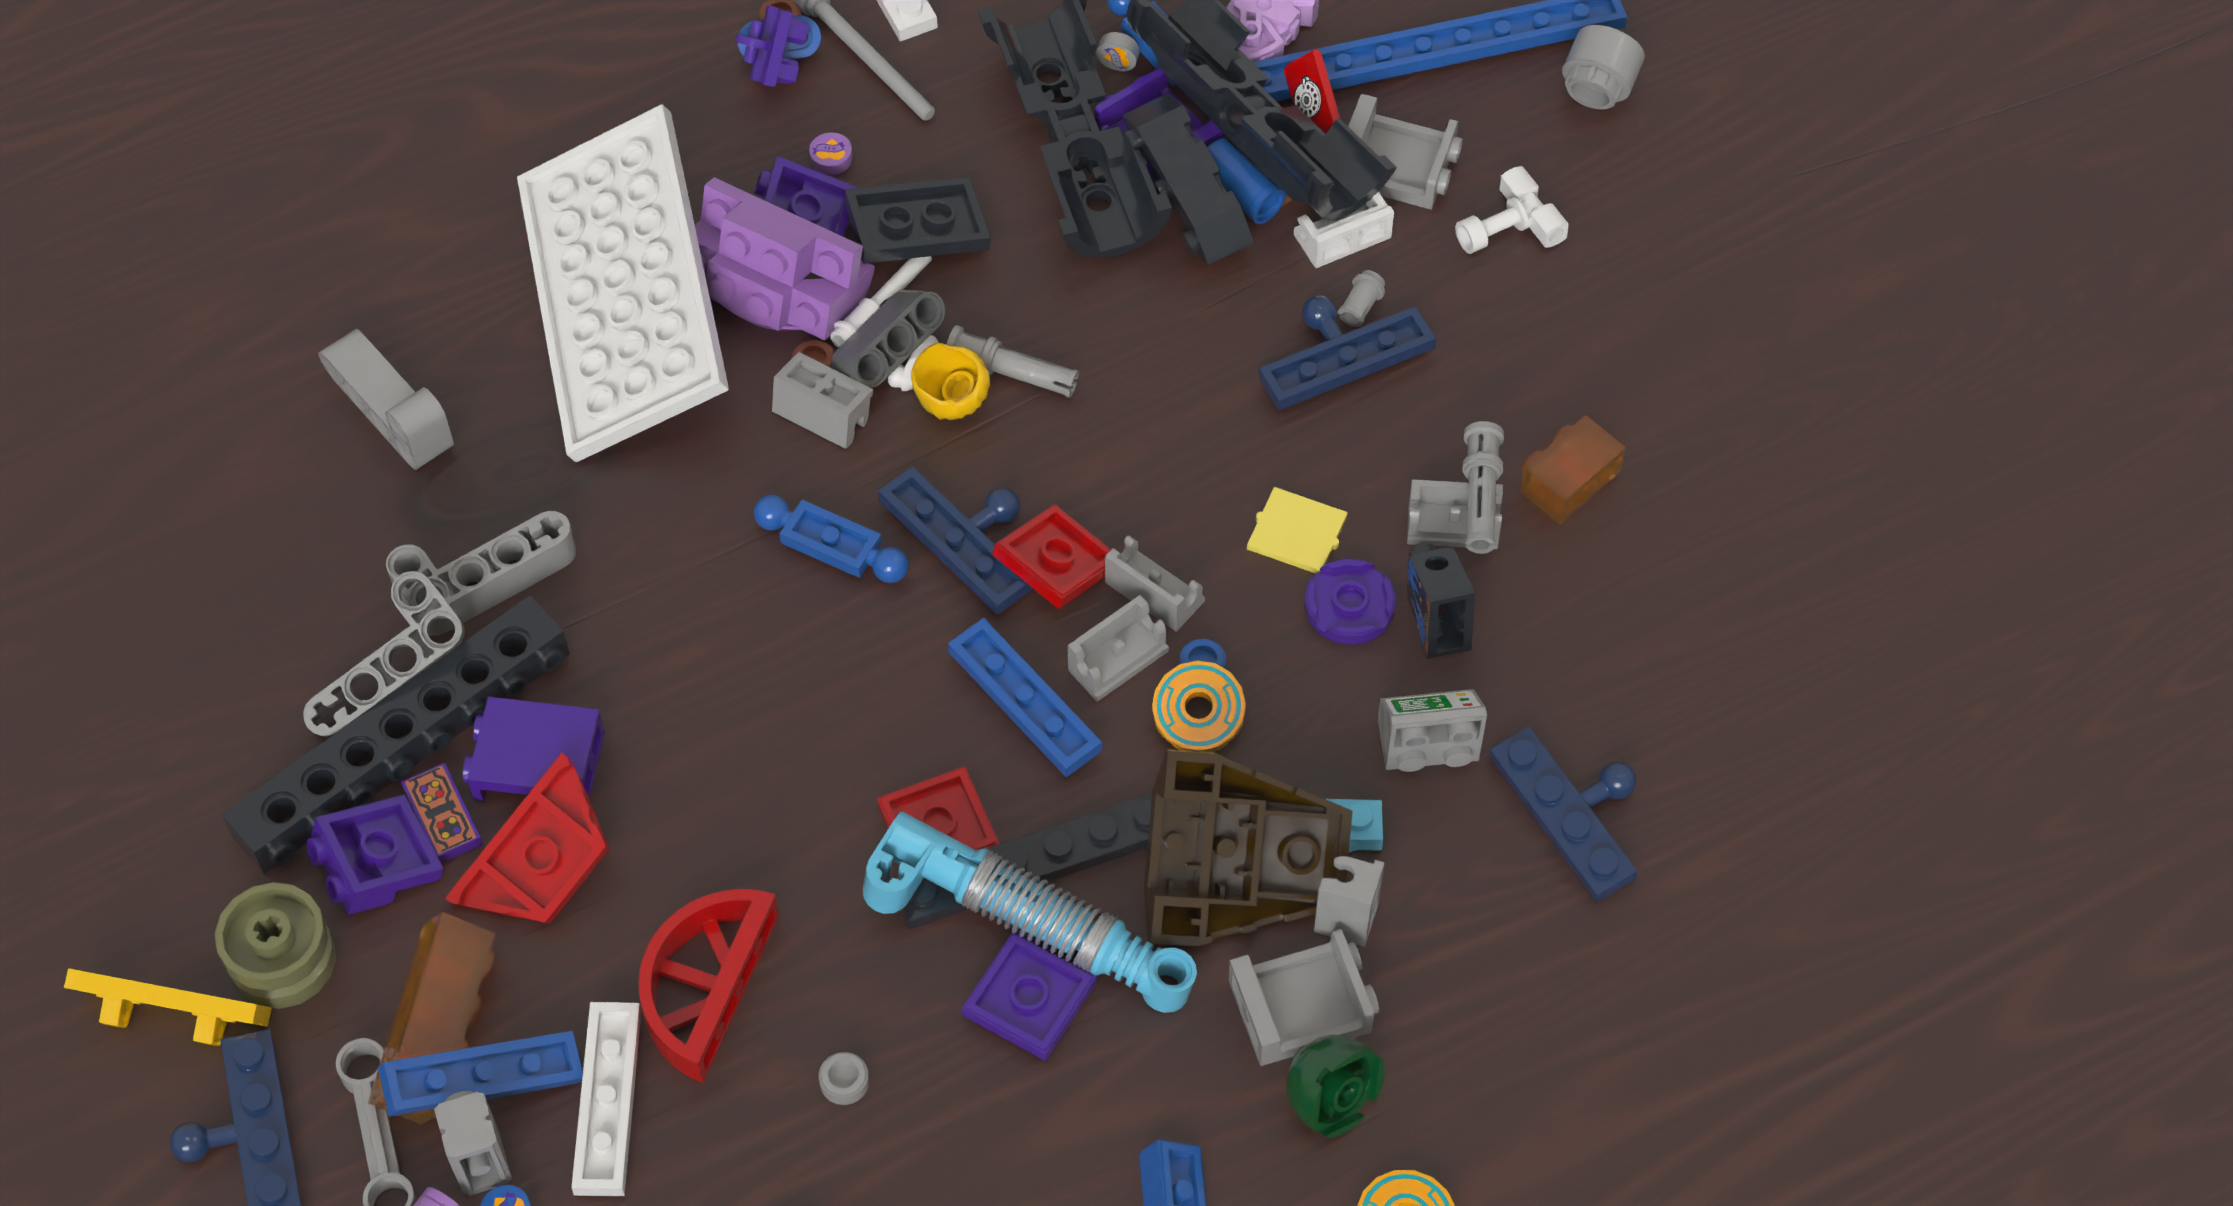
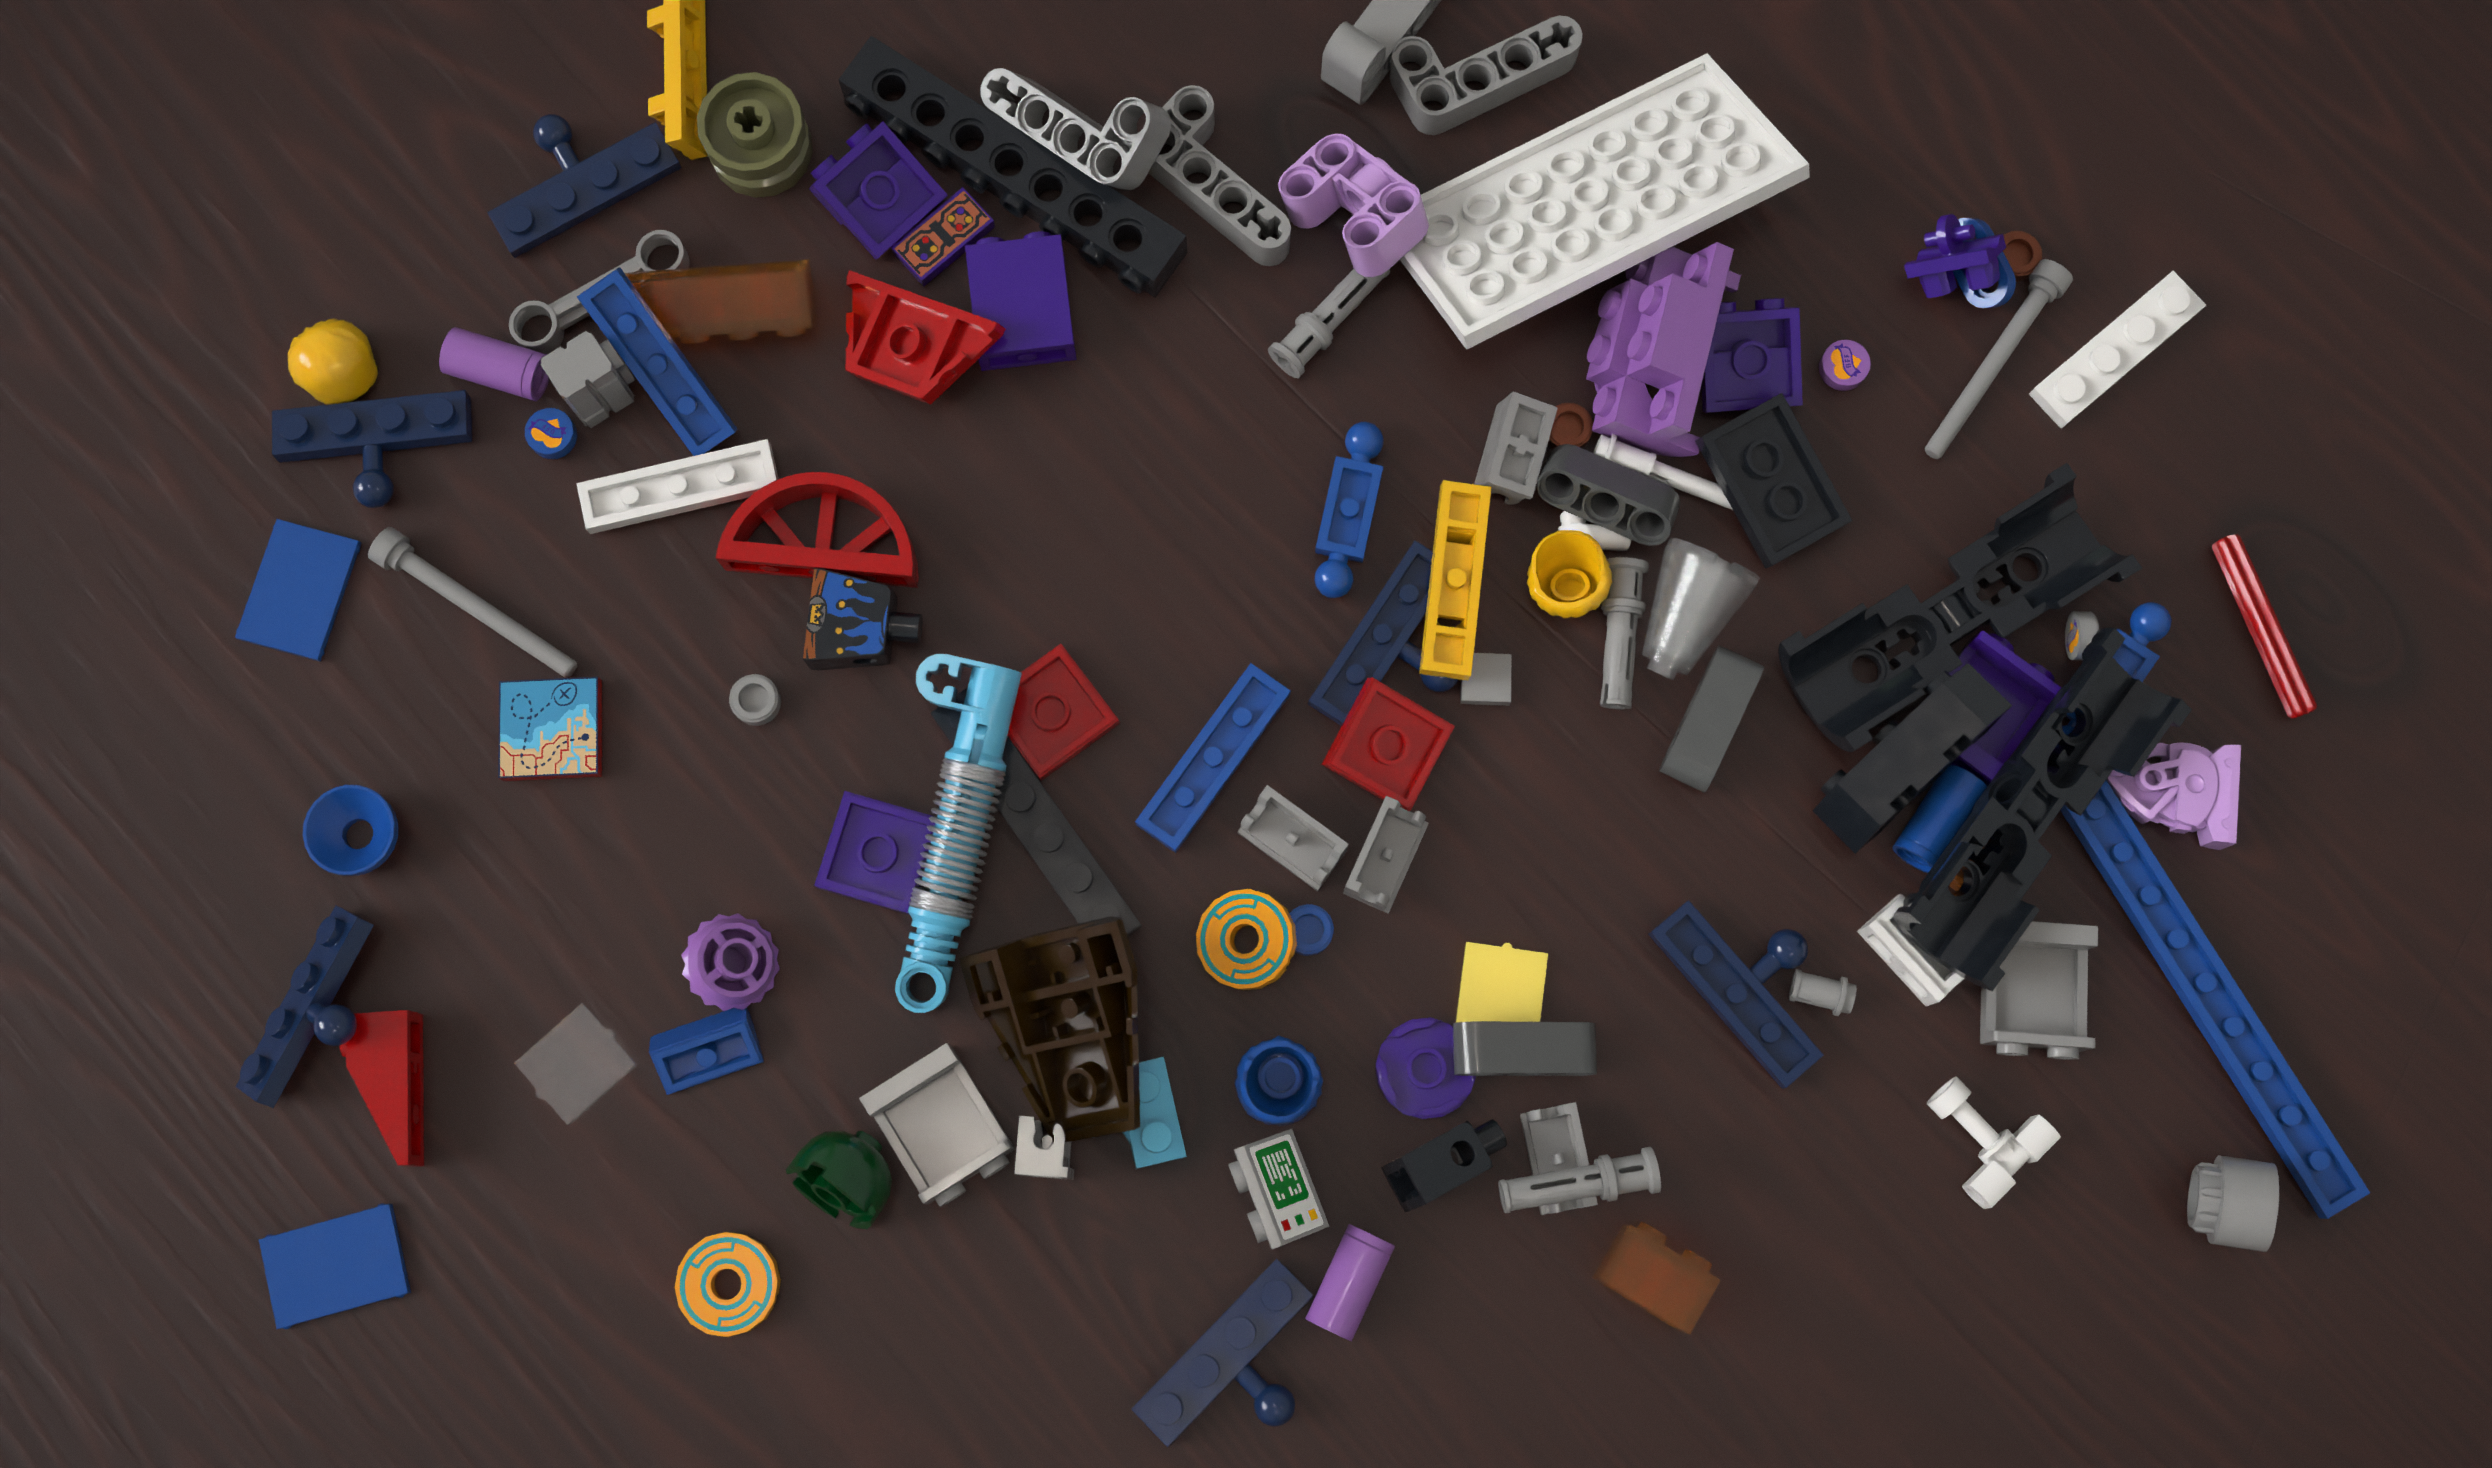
camera: 75 degrees right, 20 degrees up
(472, 342) = (1487, 67): none -> light grey beam
(544, 446) = (1384, 205): none -> lavender beam
(652, 524) = (1315, 329): none -> light grey pin
(798, 966) = (854, 623): none -> torso
(927, 464) = (1455, 580): none -> yellow hinge
(1006, 300) = (1692, 606): none -> clear cone
(1020, 473) = (1489, 680): none -> light grey tile
(1097, 1145) = (730, 962): none -> medium lavender piece
(1107, 316) = (1711, 718): none -> dark grey beam
(1312, 89) = (2079, 871): red slope -> none
(1335, 705) = (1278, 1081): none -> blue hair
(1354, 514) = (1524, 1048): none -> dark grey beam
(1524, 695) = (1350, 1282): none -> medium lavender pin

